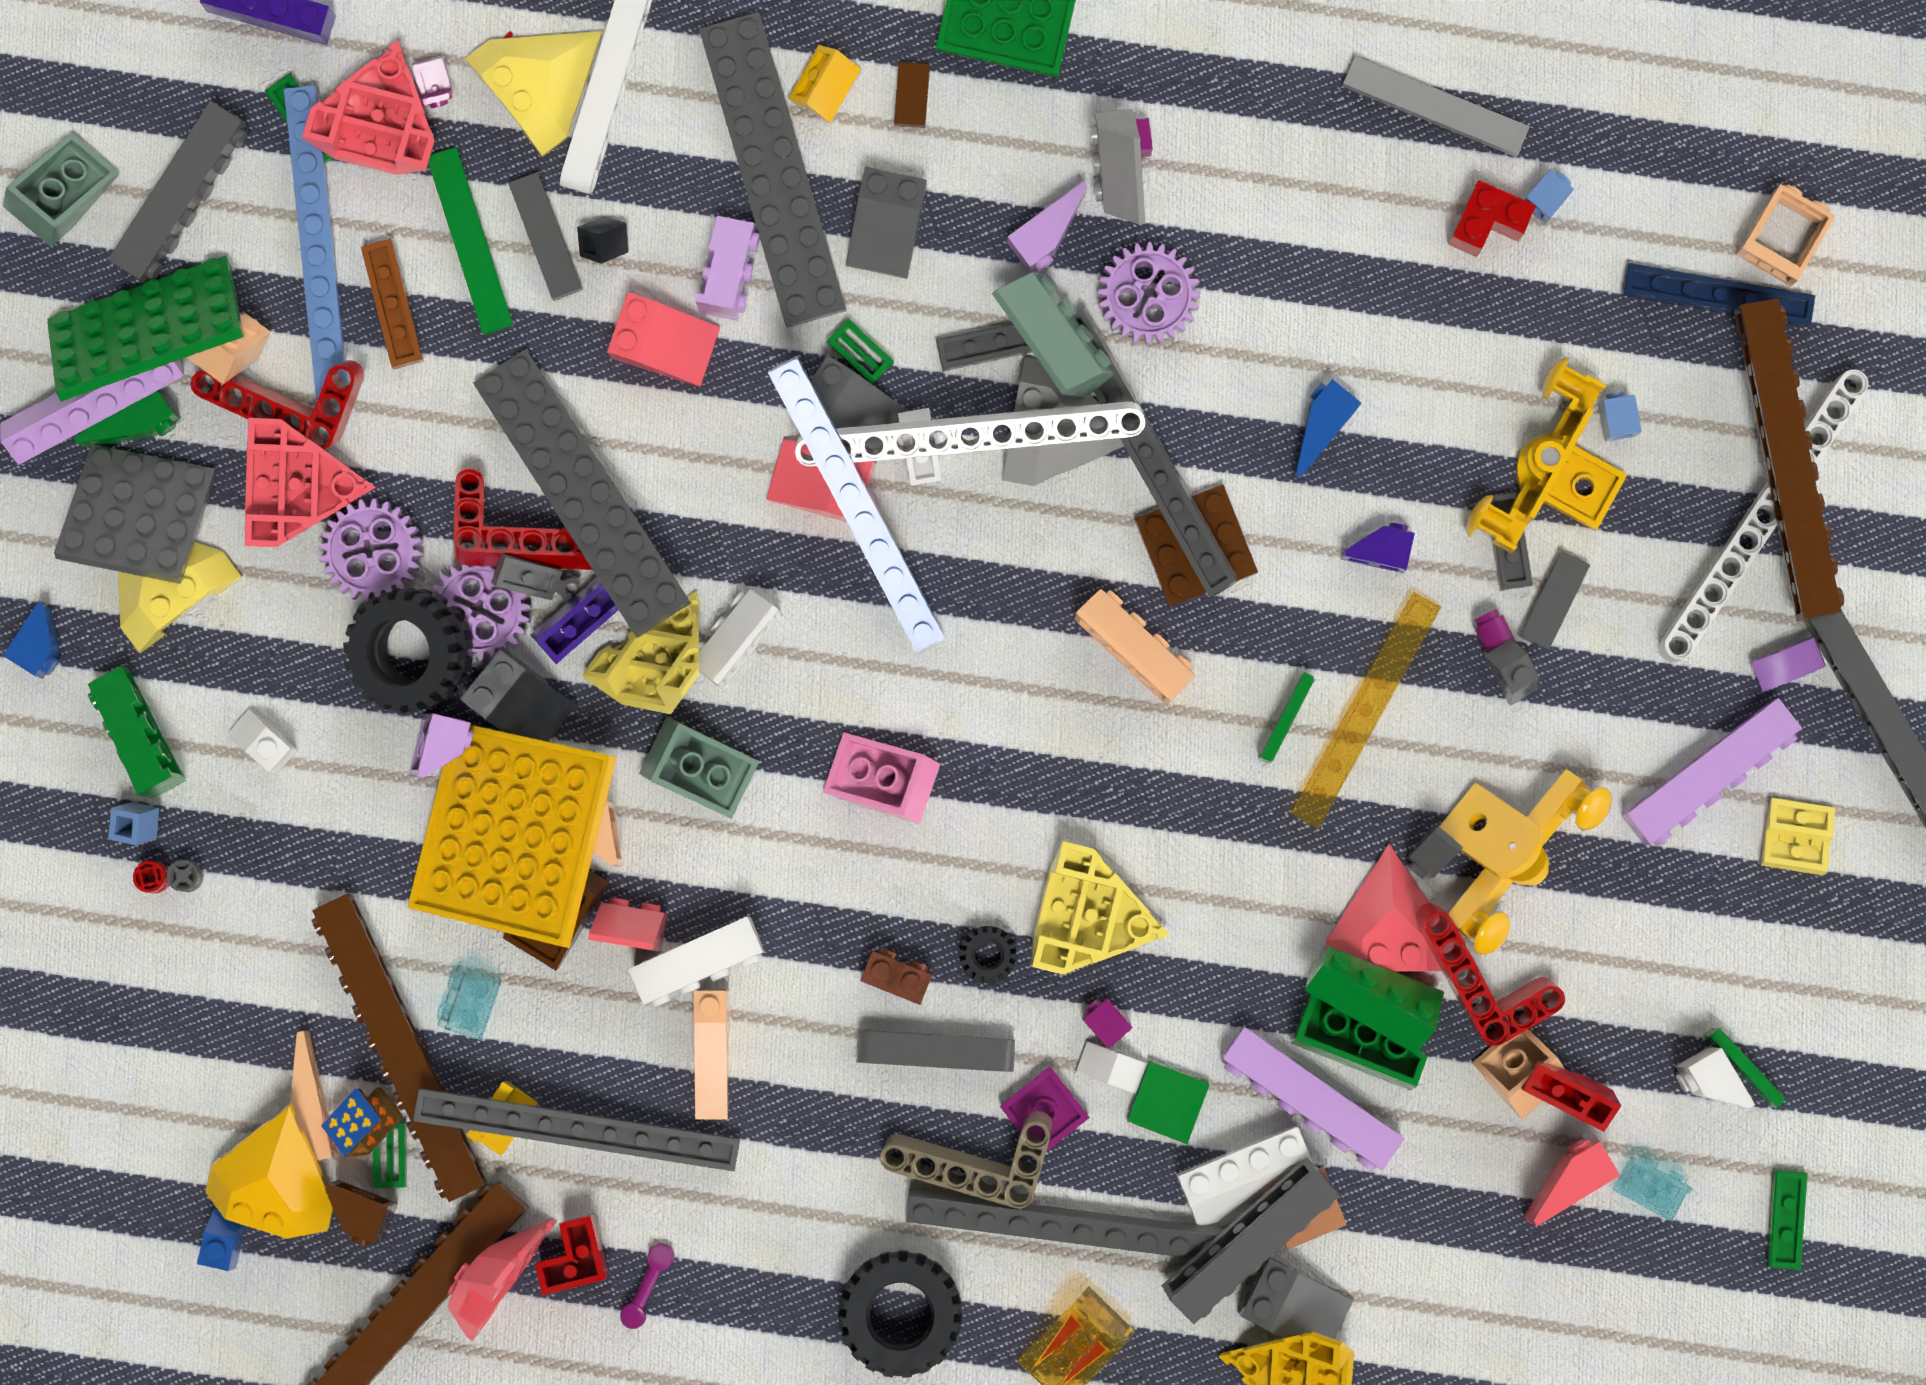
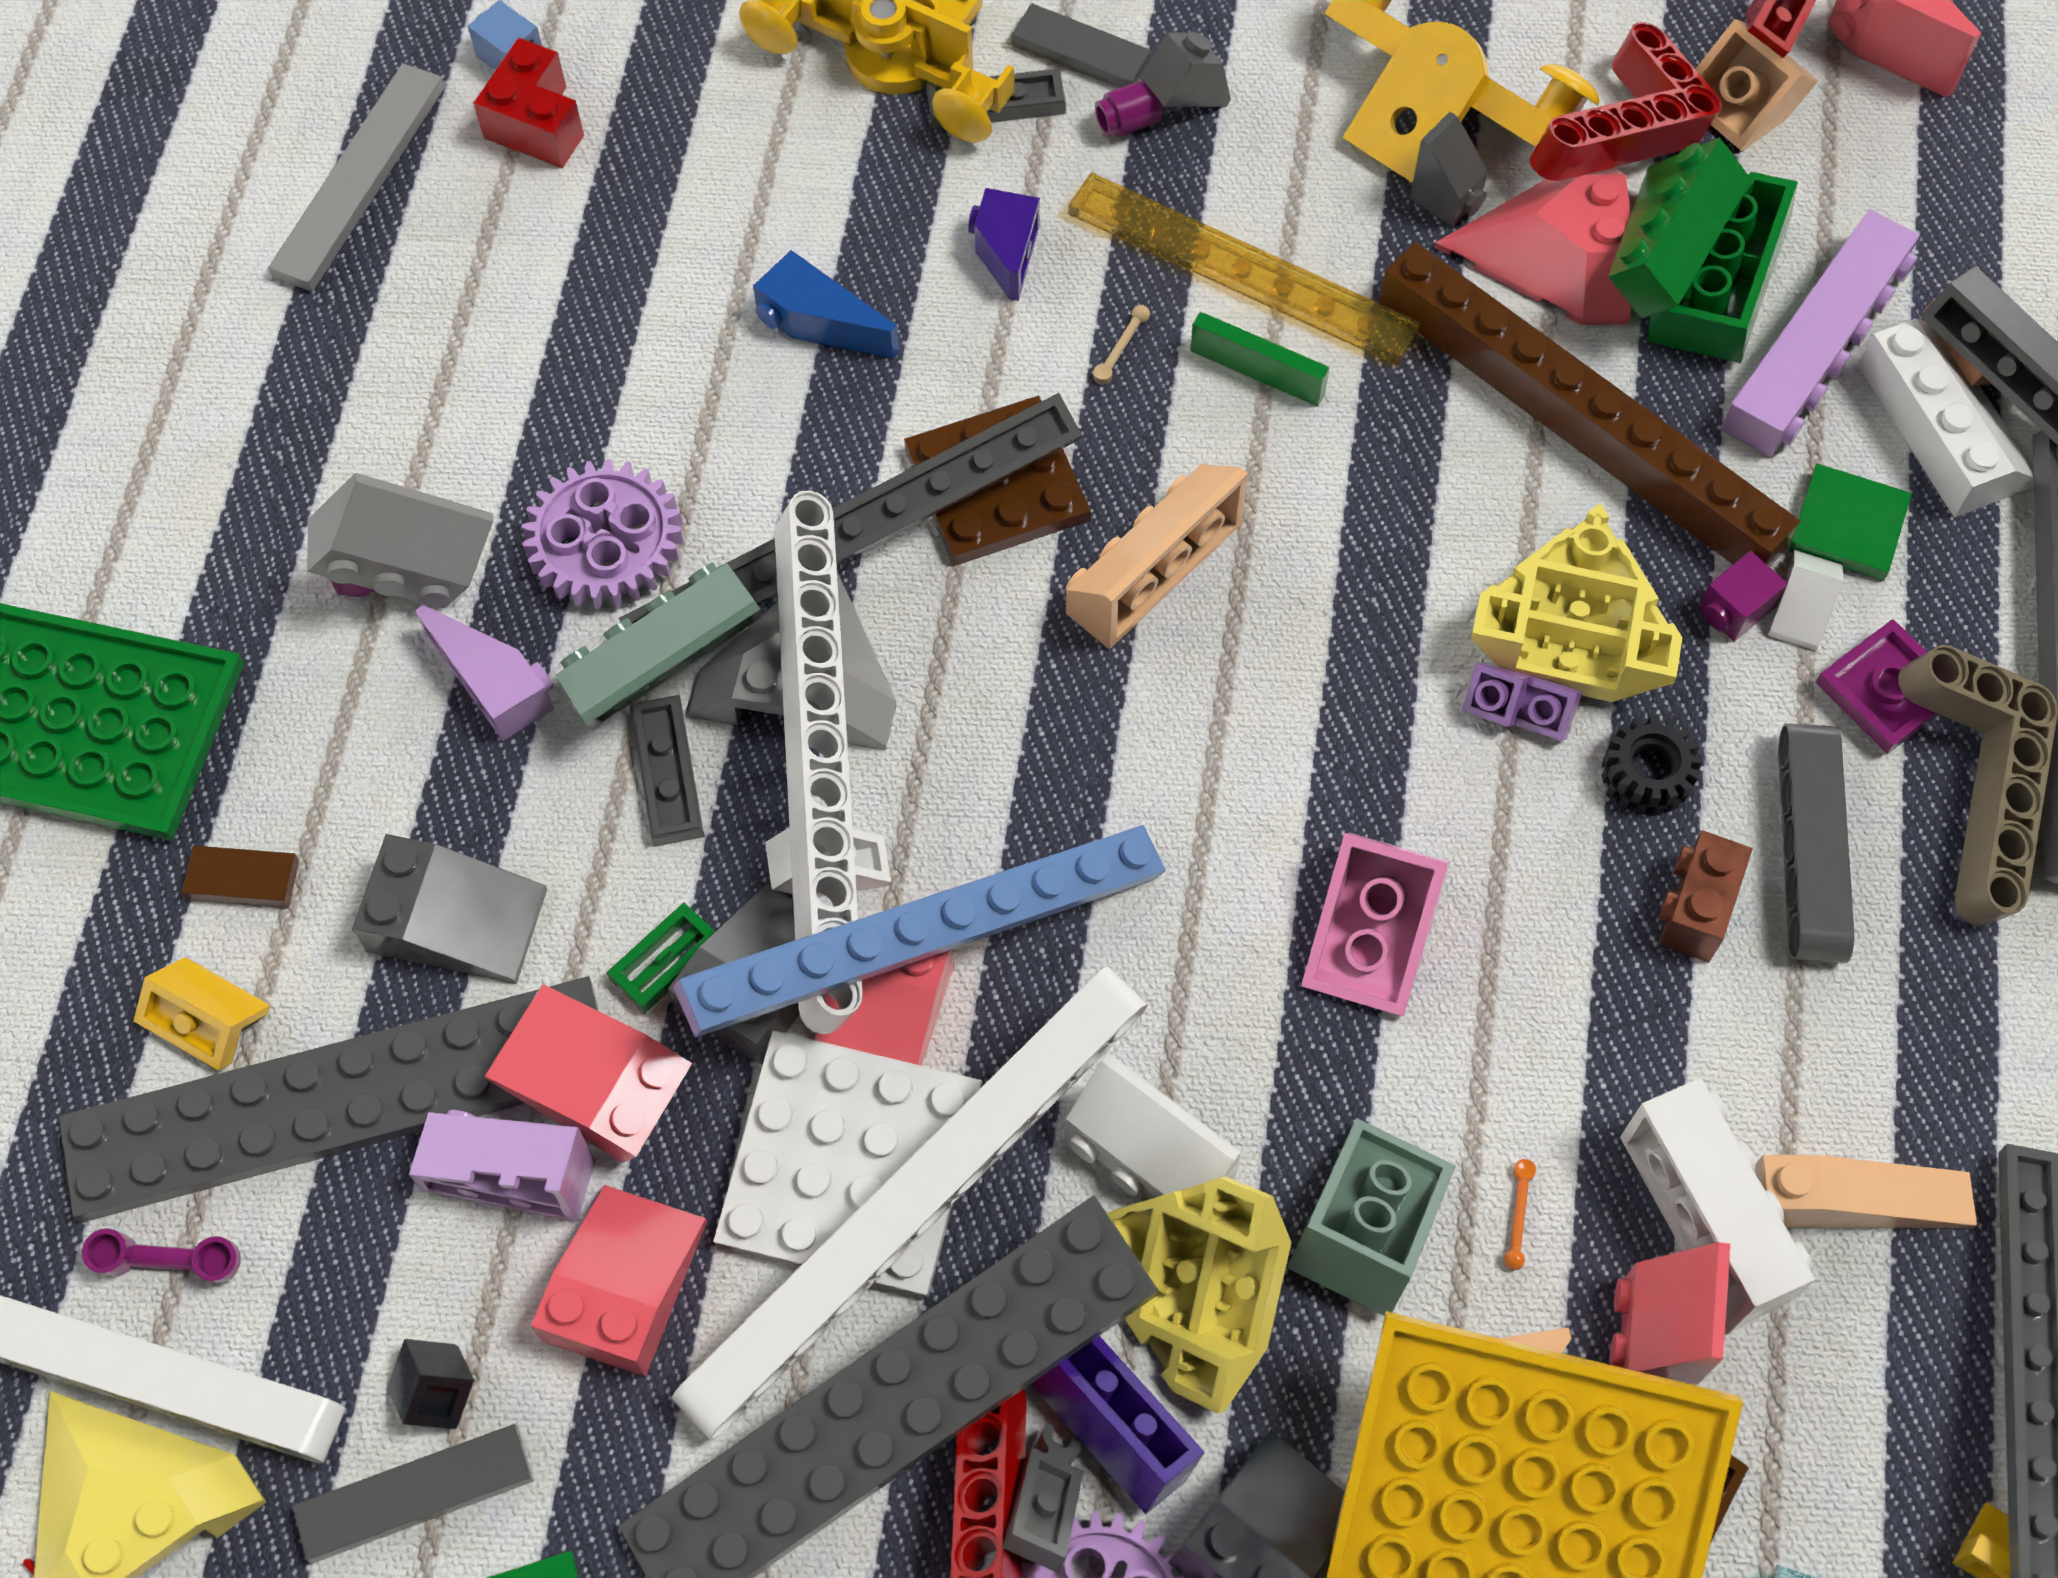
camera: 90 degrees left, 20 degrees down
(676, 849) = (1523, 1172): none -> orange hinge
(679, 55) = (116, 1254): none -> magenta bar
(700, 503) = (908, 1204): none -> white beam
(729, 467) = (824, 1140): none -> white plate
(777, 311) = (588, 1072): none -> coral slope
(1034, 870) = (1521, 701): none -> medium lavender slope
(1247, 931) = (1587, 410): none -> reddish brown brick
(1281, 615) = (1103, 372): none -> tan hinge

